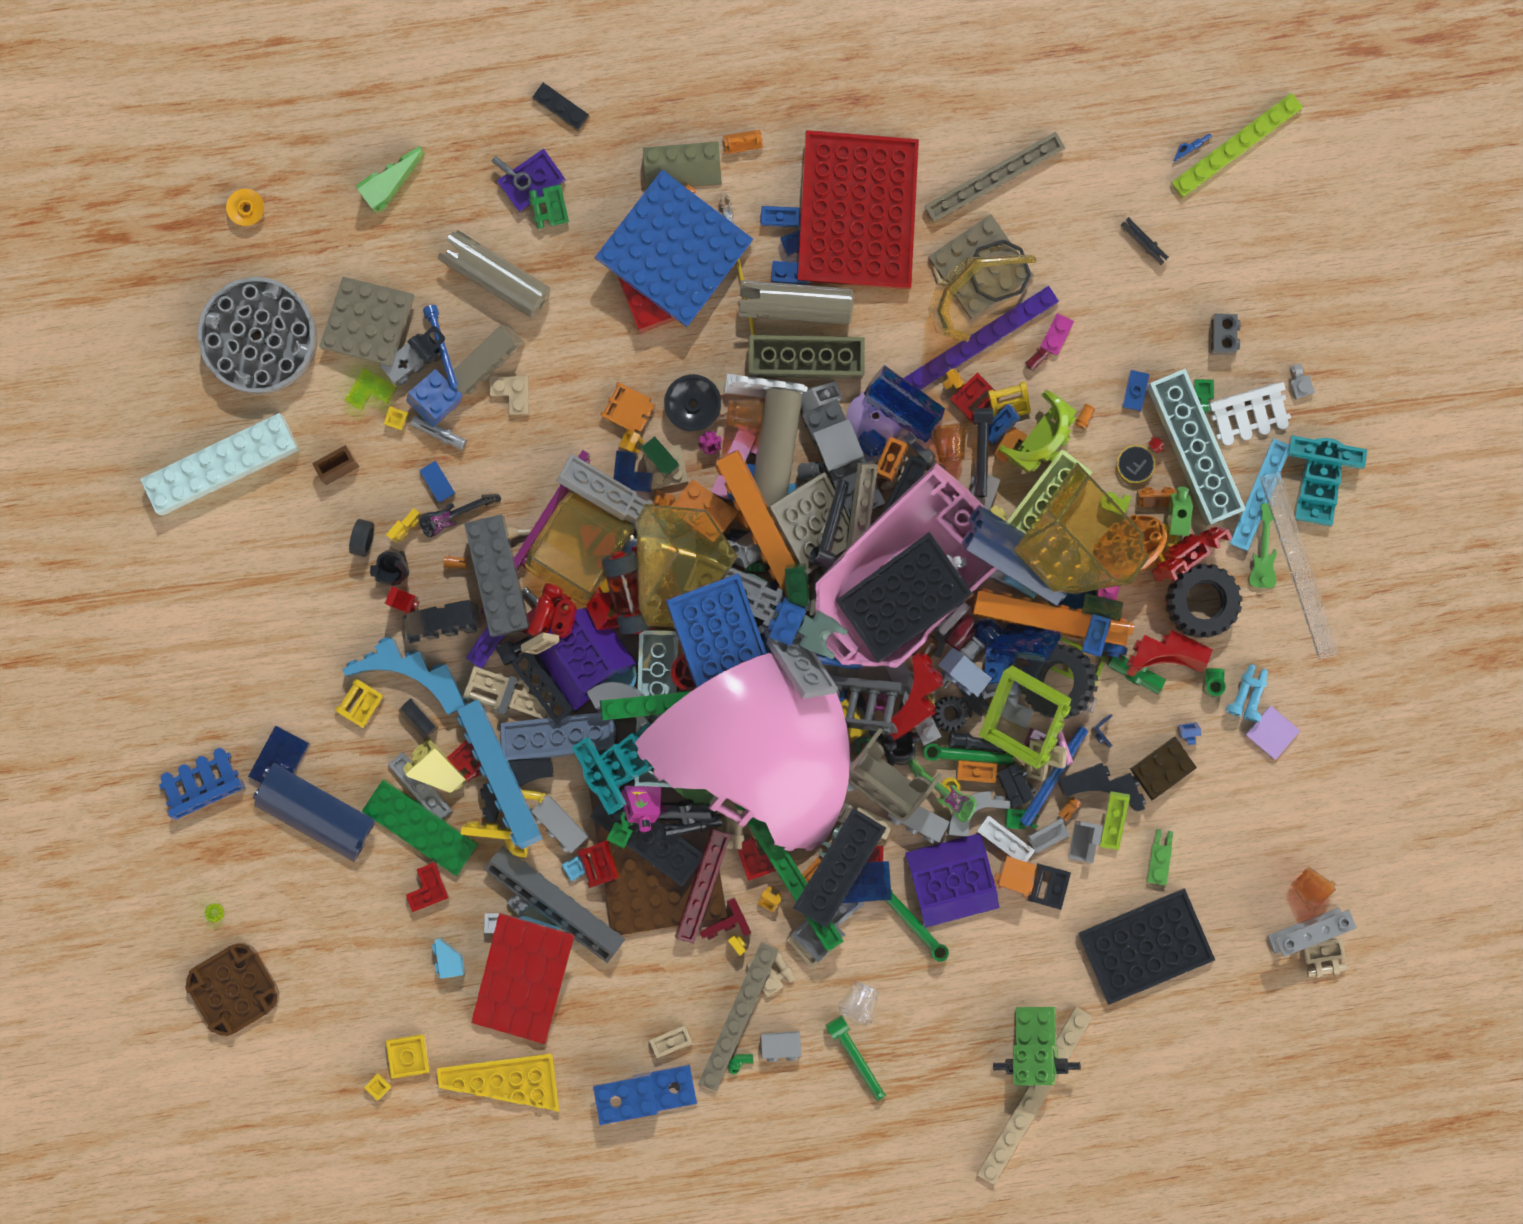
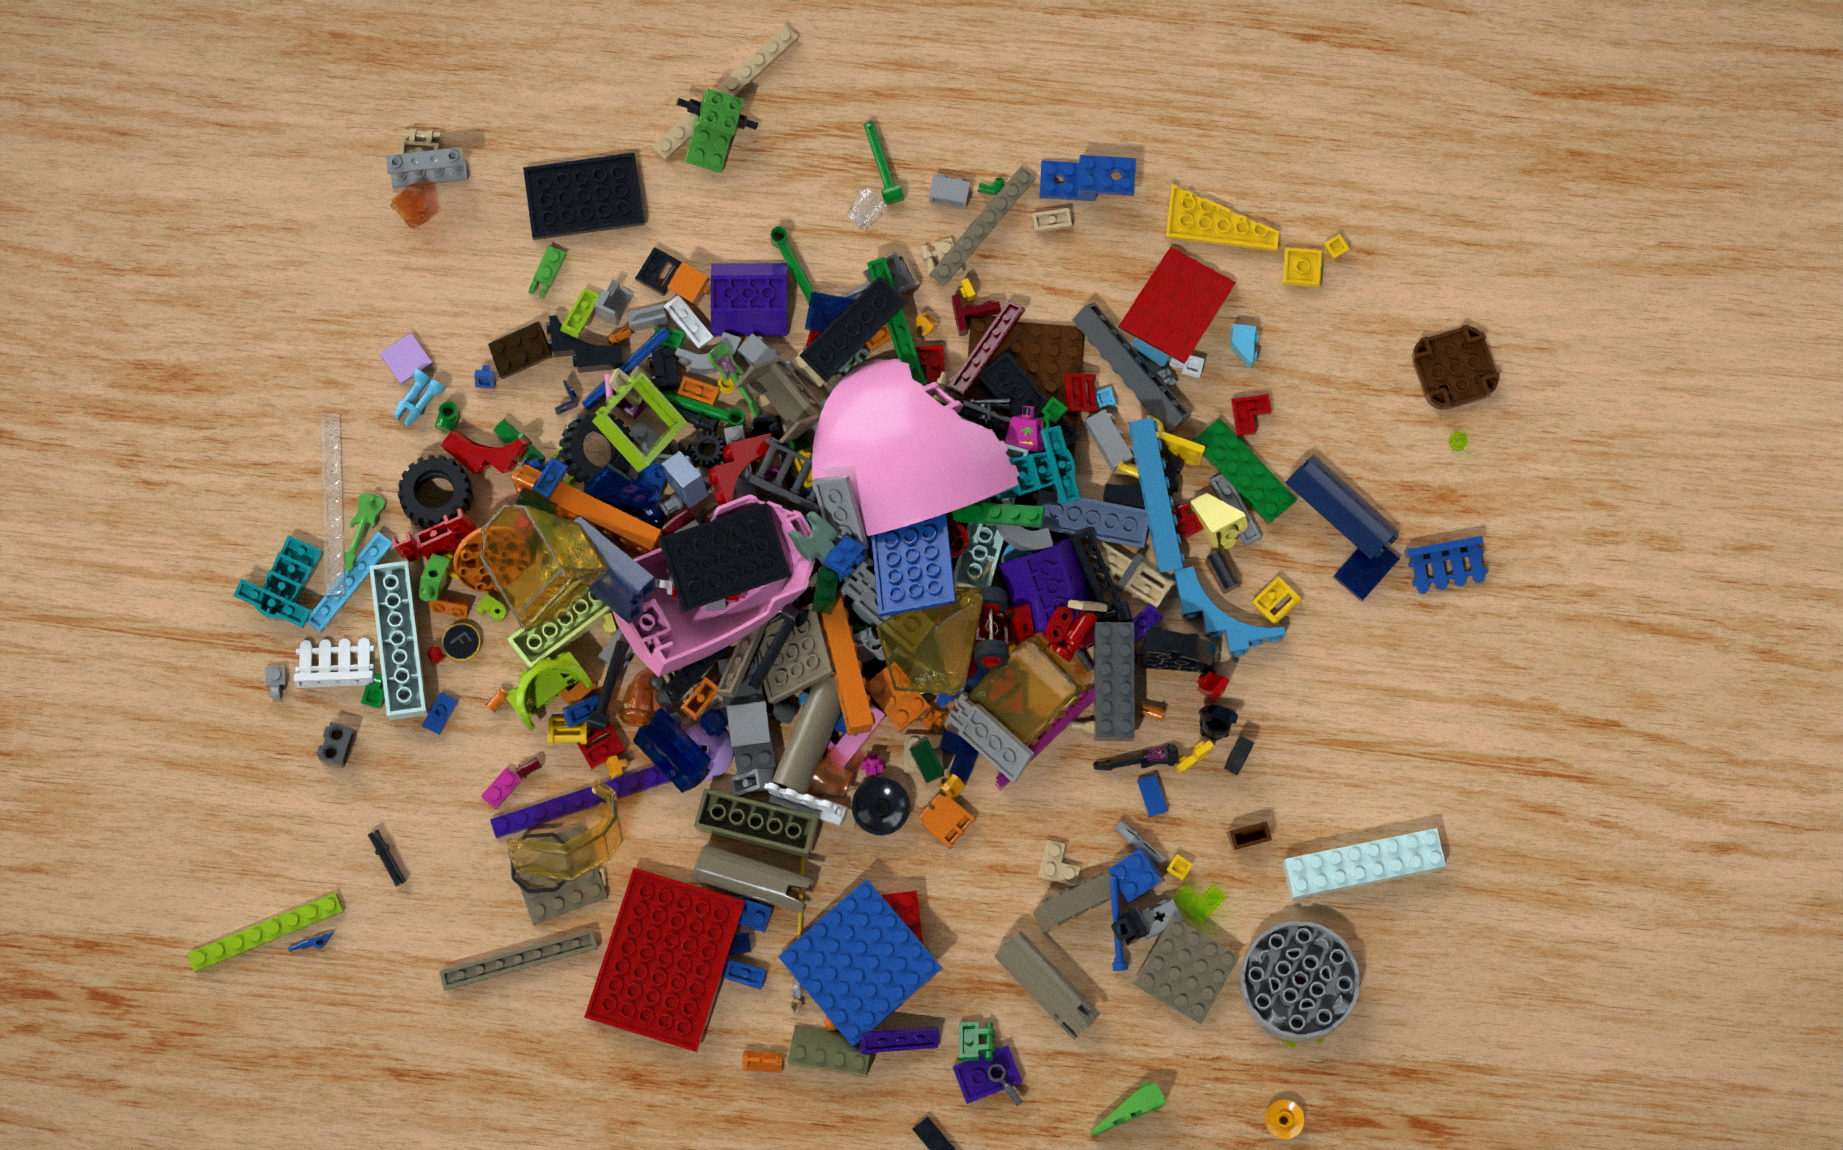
camera: 170 degrees left, 10 degrees down
(620, 188) = (899, 1040): none -> dark purple plate

